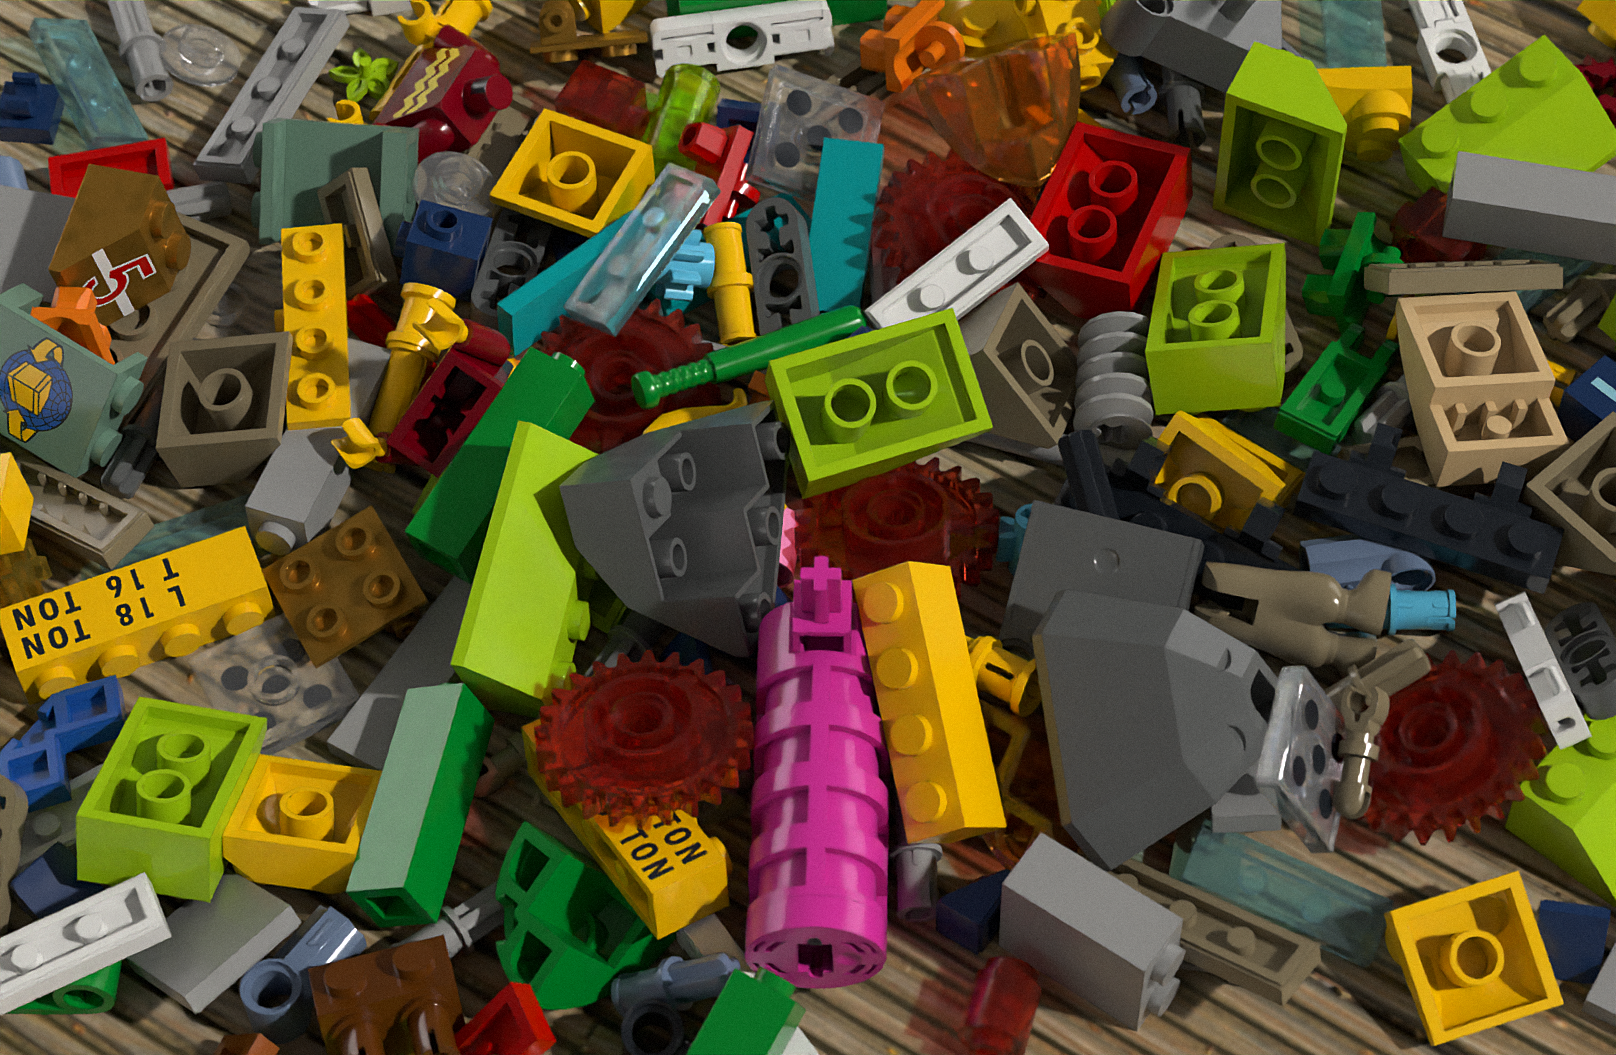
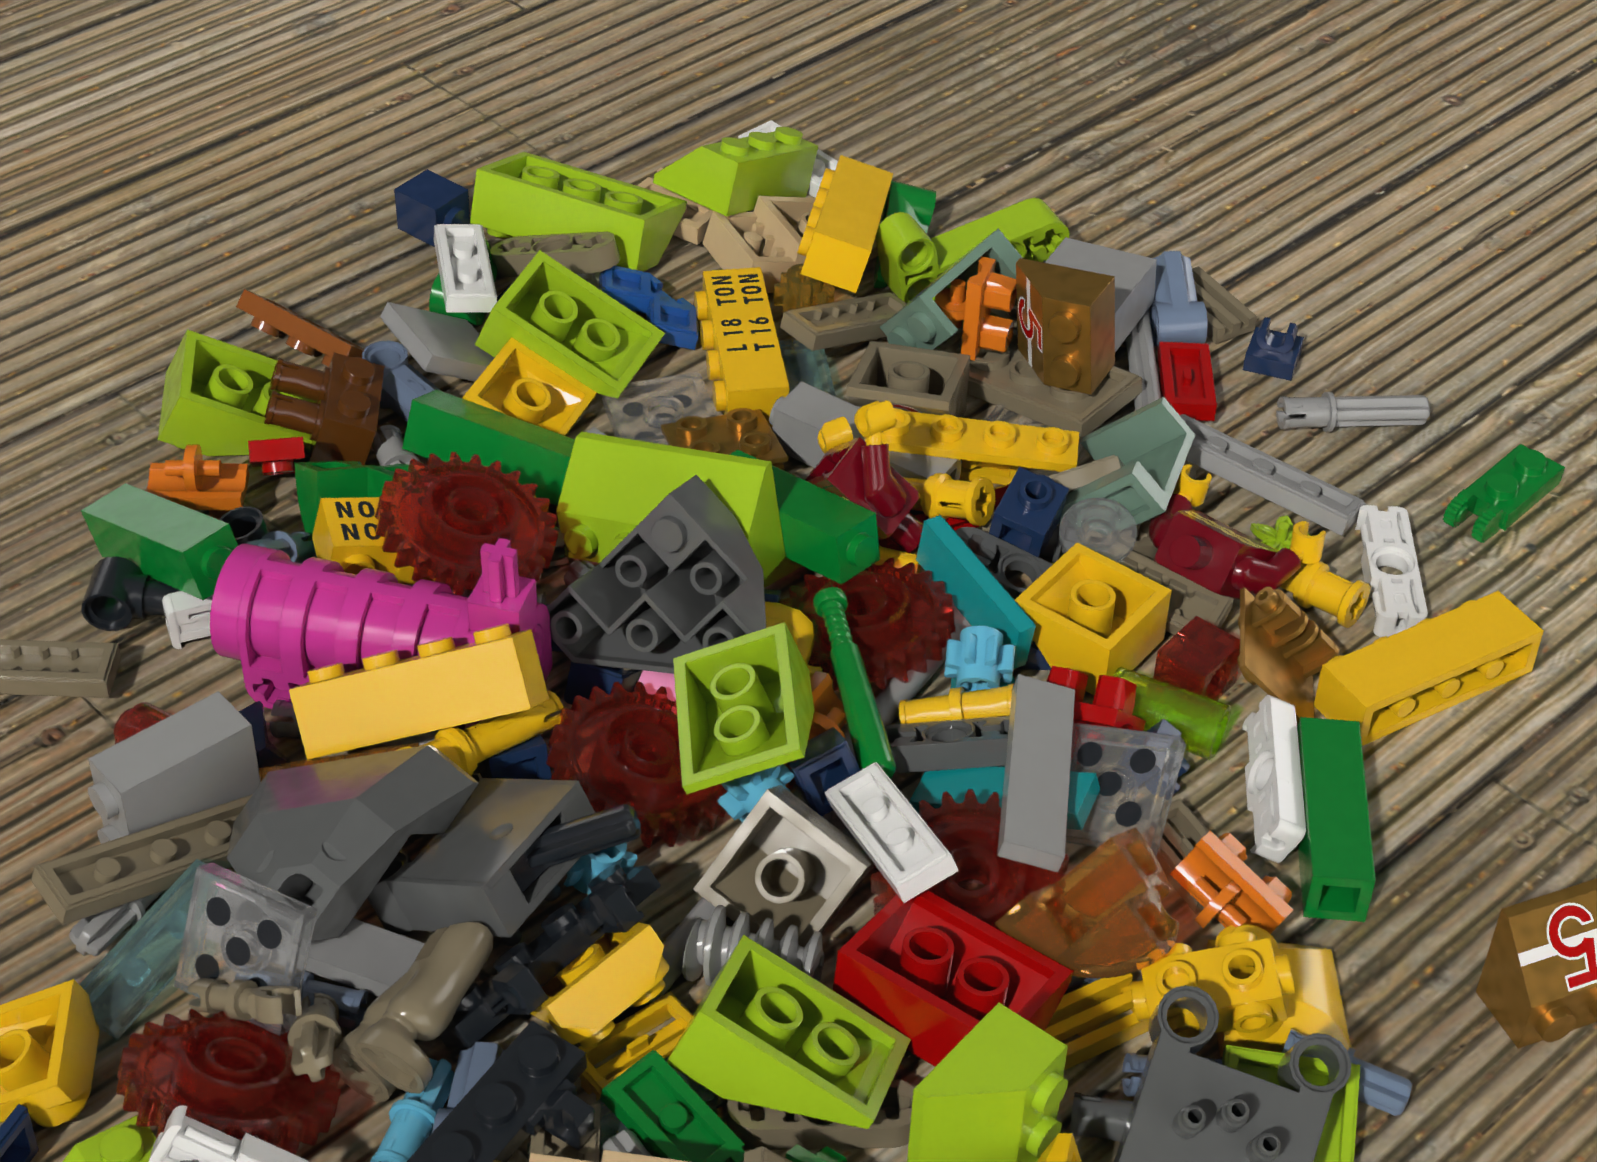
camera: 100 degrees right, 15 degrees down
(86, 82) = (1308, 372): clear light blue tile -> none
(199, 55) = (1316, 442): clear piece -> none
(642, 249) = (979, 612): clear light blue tile -> none
(846, 174) = (1037, 774): none -> light grey tile

